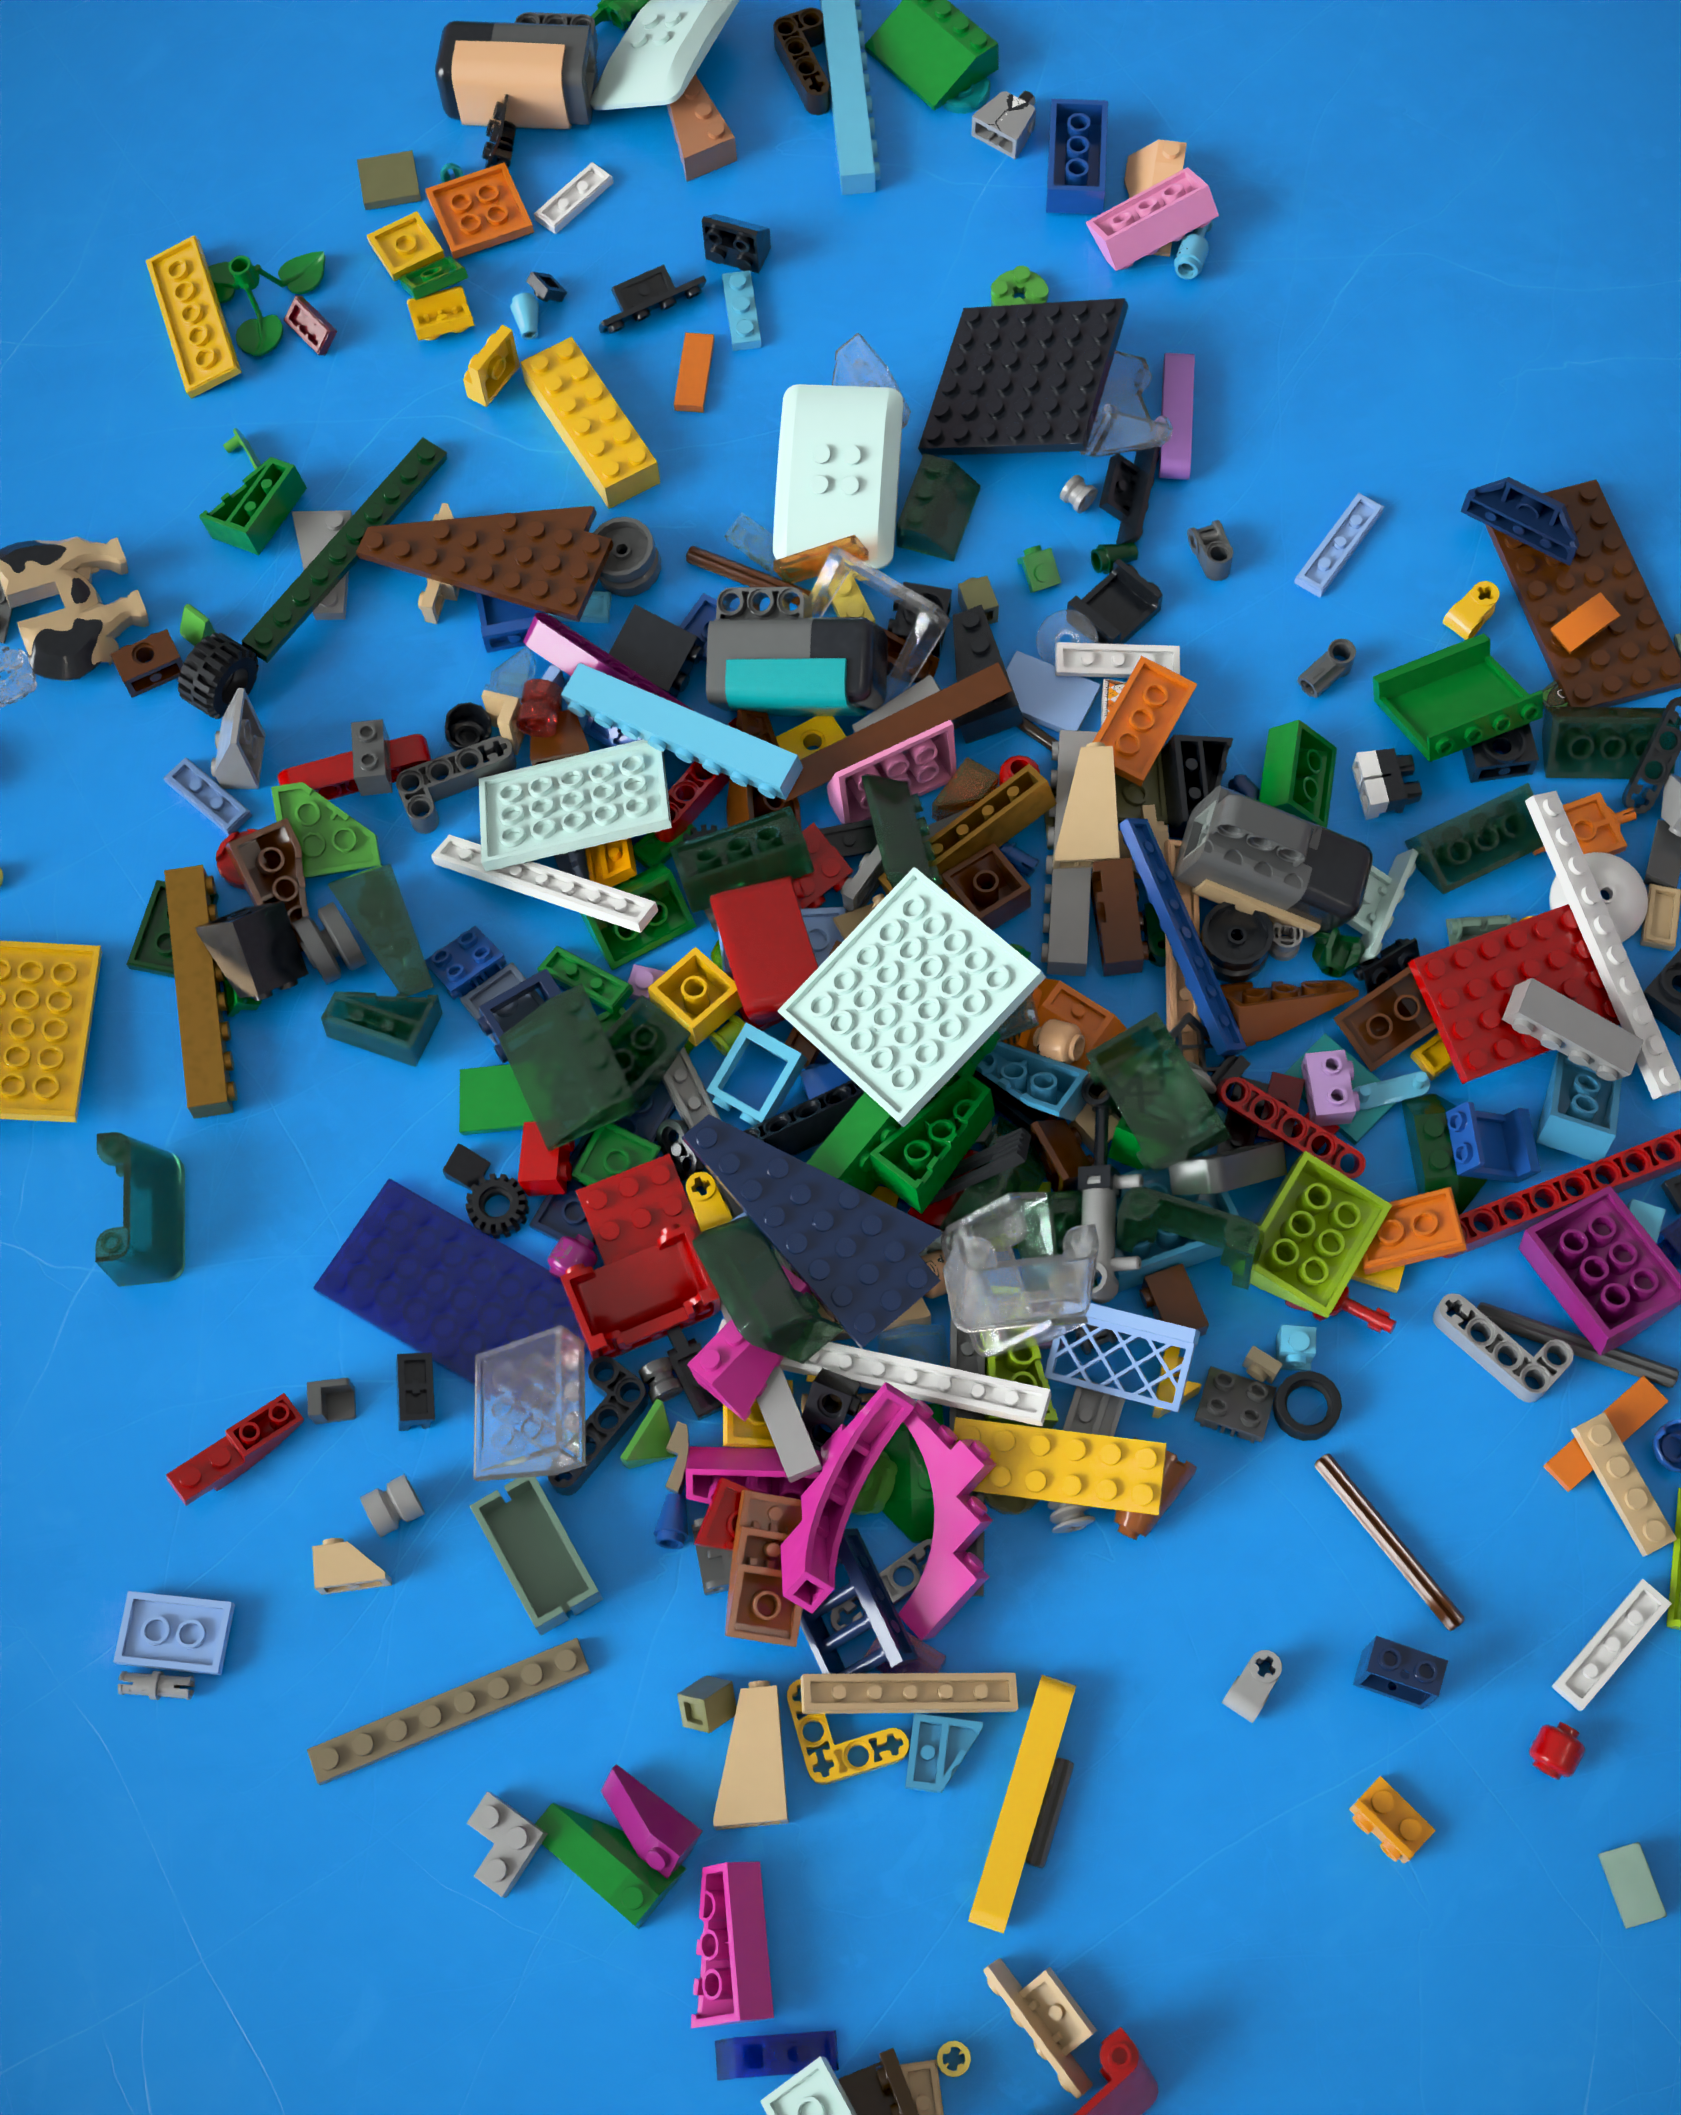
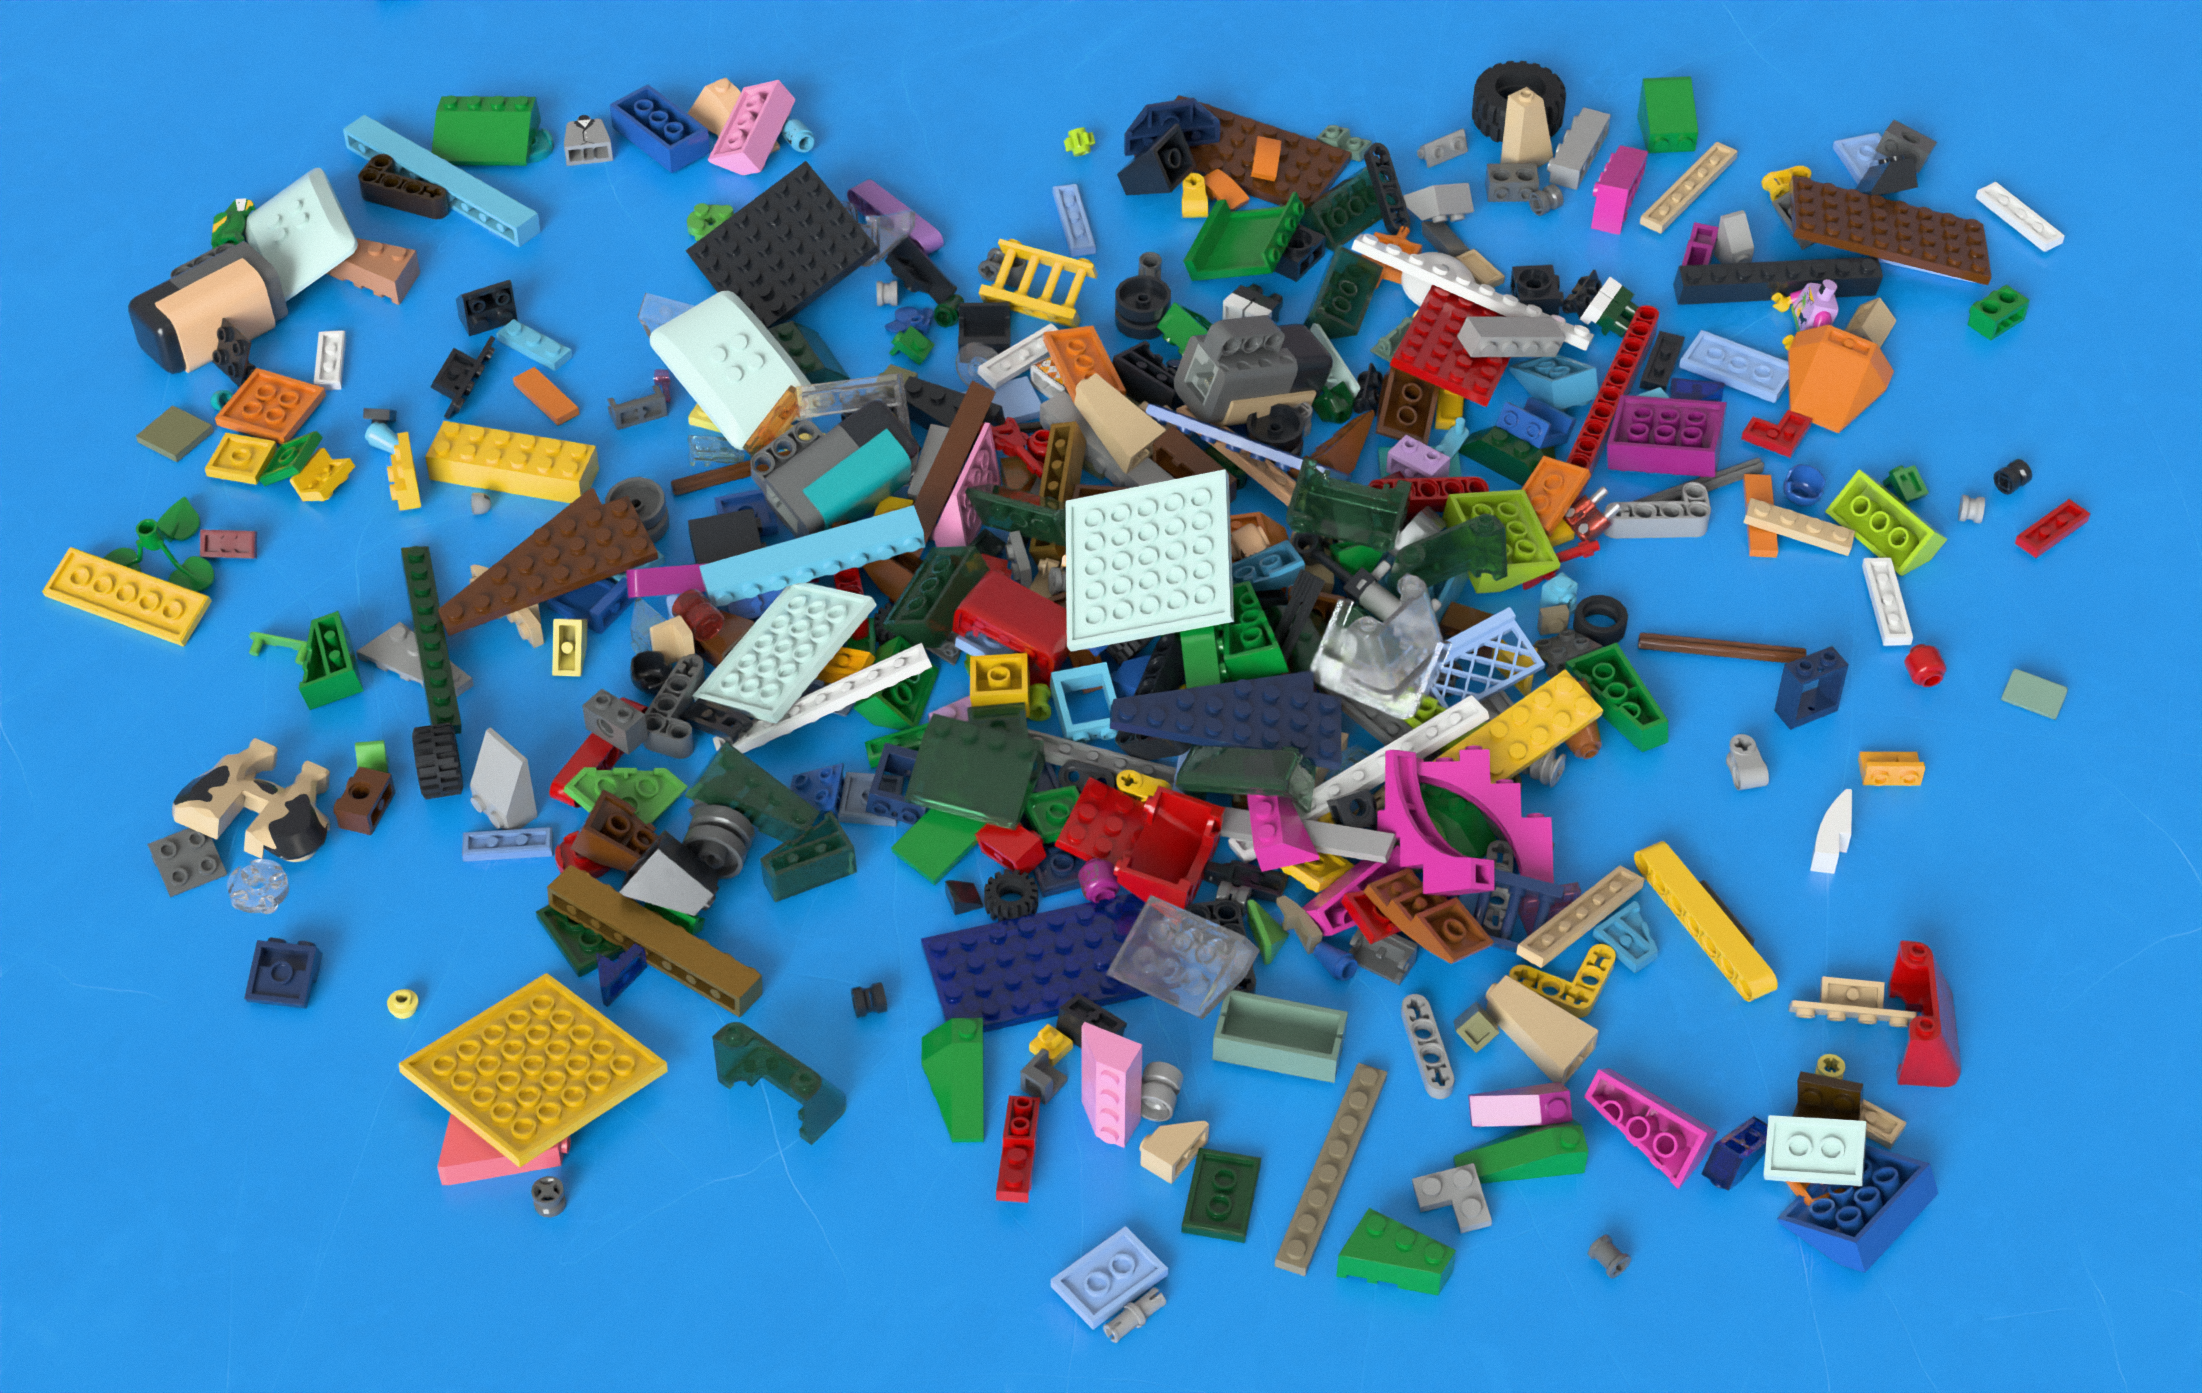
camera: 50 degrees left, 20 degrees down
(139, 997) = (618, 976): none -> clear blue slope
(278, 1332) = (955, 1069): none -> green wedge
(287, 1198) = (862, 1002): none -> black wheel
(325, 1473) = (1111, 1083): none -> bright pink slope
(341, 1646) = (1221, 1195): none -> dark green tile
(374, 1375) = (1052, 1041): none -> yellow tile
(390, 1847) = (1395, 1254): none -> green wedge
(441, 644) = (569, 646): none -> light yellow slope
(461, 822) = (717, 720): none -> black plate
(528, 441) = (480, 503): none -> light grey hinge
(553, 2031) = (1609, 1256): none -> dark grey bush
(647, 1675) = (1426, 1046): none -> light grey beam
(746, 447) = (638, 410): none -> dark grey hinge
(985, 751) = (1014, 444): none -> red piece
(1070, 540) = (910, 316): none -> blue plate
(1182, 595) = (1041, 307): none -> yellow fence
(1222, 1498) = (1622, 696): none -> green wedge
(1245, 1834) = (1833, 834): none -> white slope
(1278, 693) = (1141, 306): none -> black wheel
(1420, 1289) = (1587, 519): none -> clear red piece
(1436, 461) = (1079, 141): none -> lime gear
(1467, 551) = (1159, 165): none -> black slope
(1512, 624) = (1221, 187): none -> orange slope

